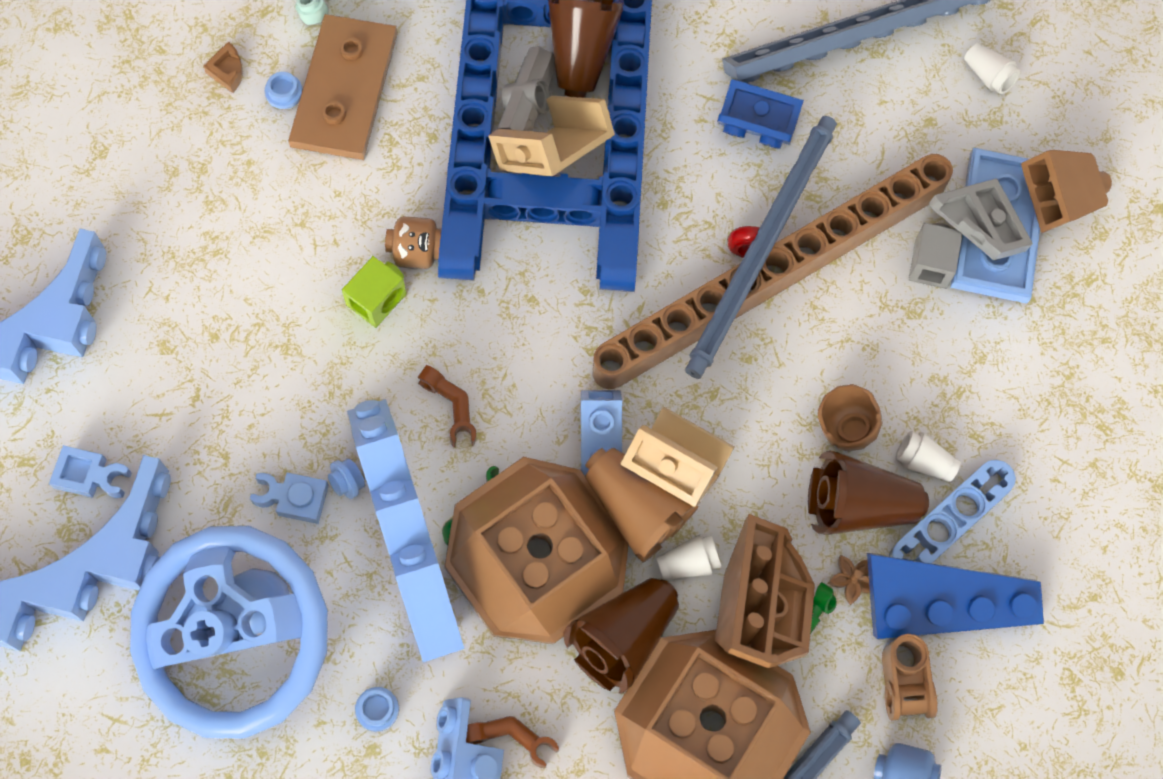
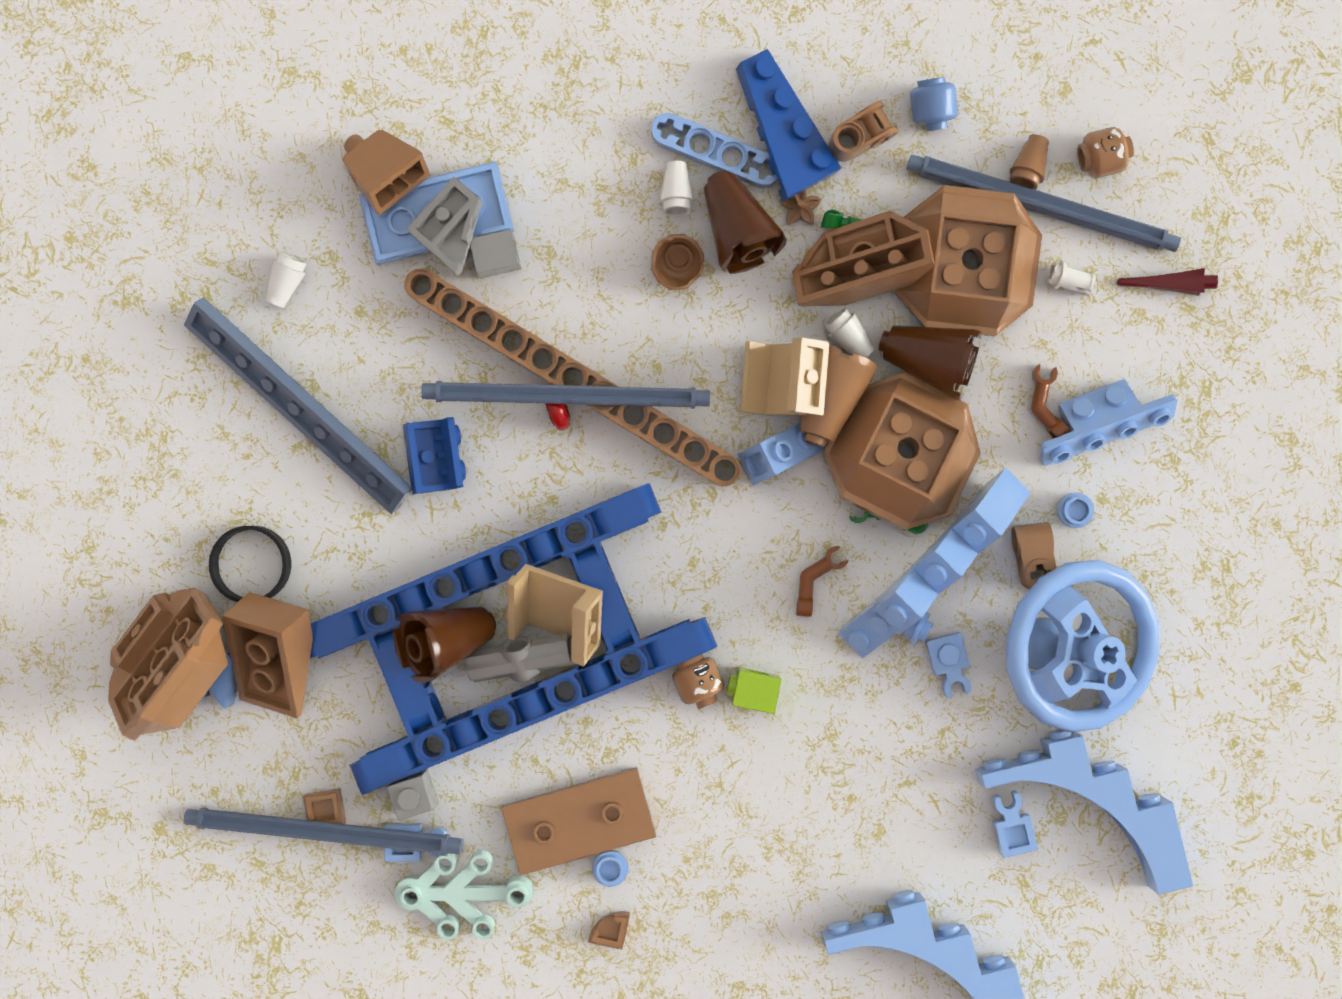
camera: 115 degrees left, 20 degrees up
(360, 637) = (1033, 547): none -> medium nougat piece

